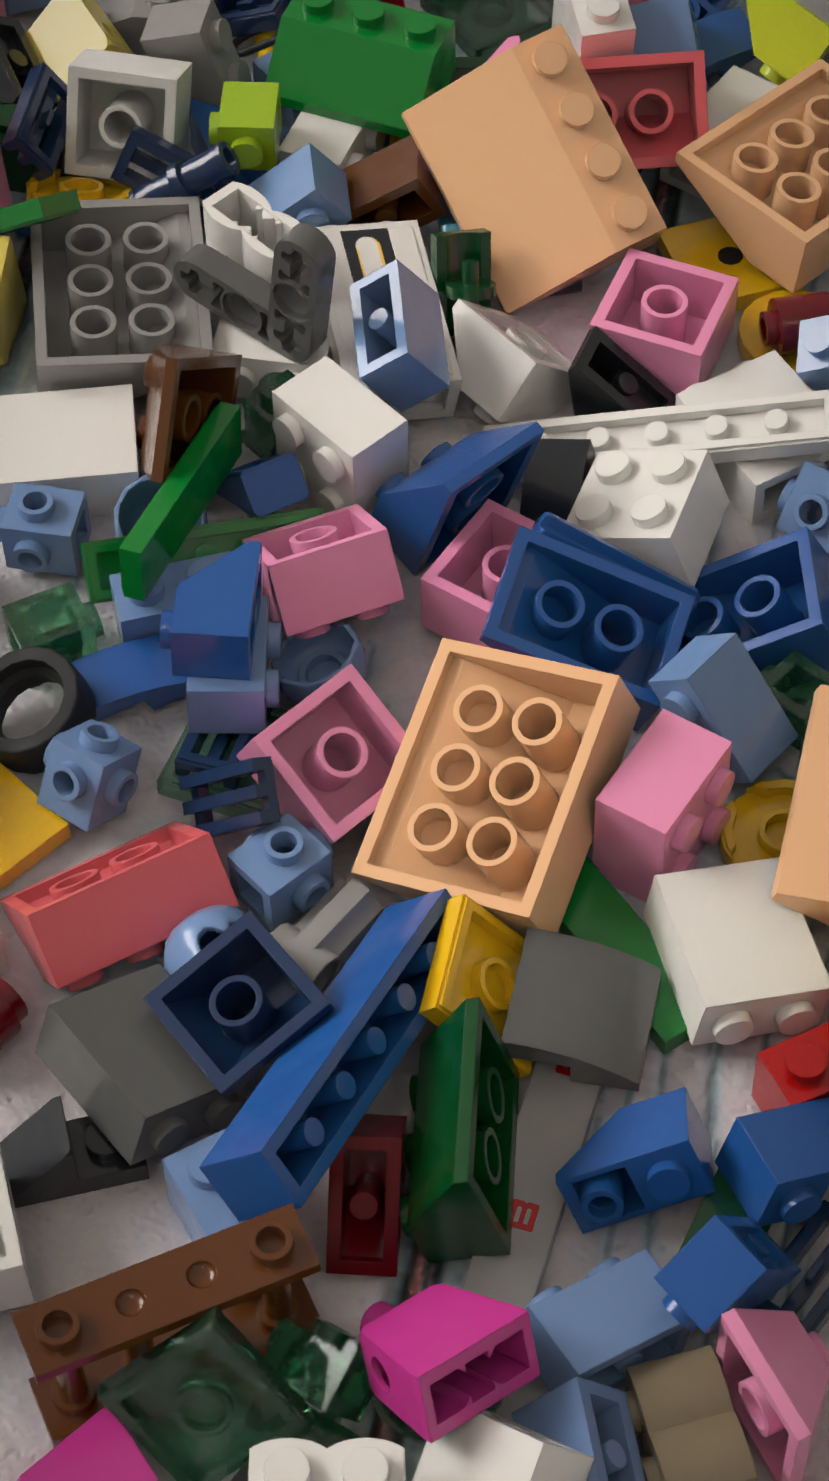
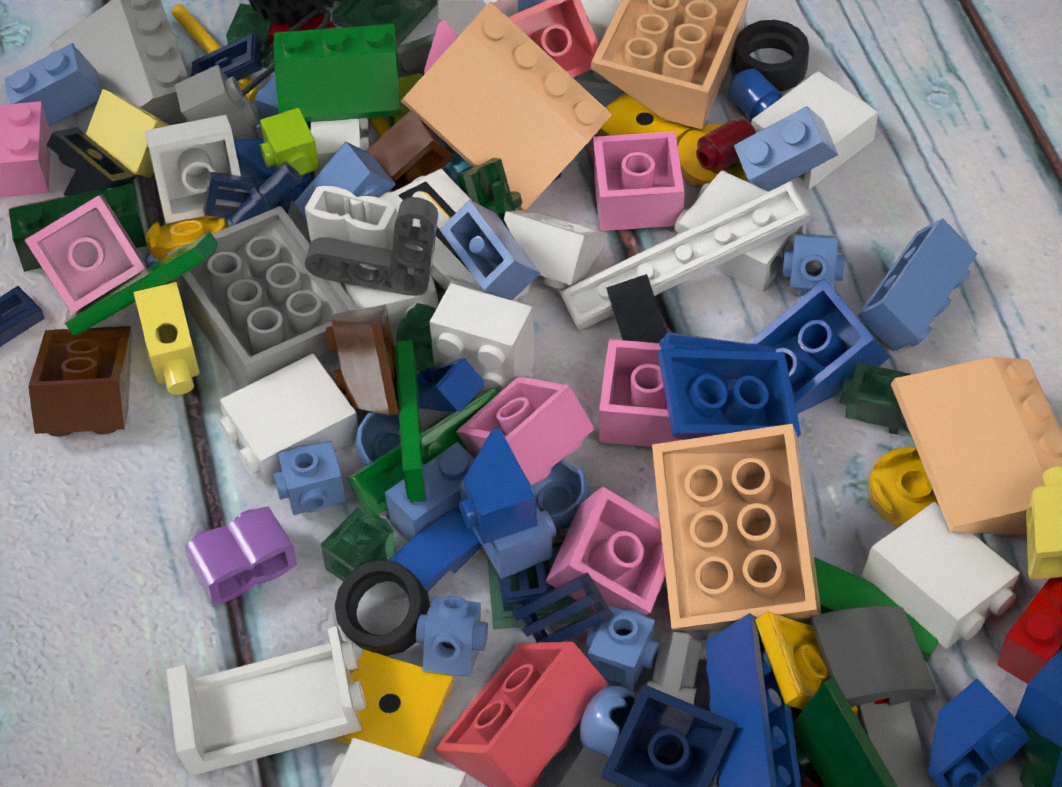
camera: 25 degrees left, 0 degrees up
(33, 115) = (138, 193): dark blue tile -> none
(449, 488) = (580, 335): blue slope -> none
(611, 380) = (631, 230): black slope -> none
(654, 506) = (711, 302): white brick -> none
(662, 804) = (846, 500): bright pink brick -> none
(724, 692) = (839, 419): medium blue brick -> none

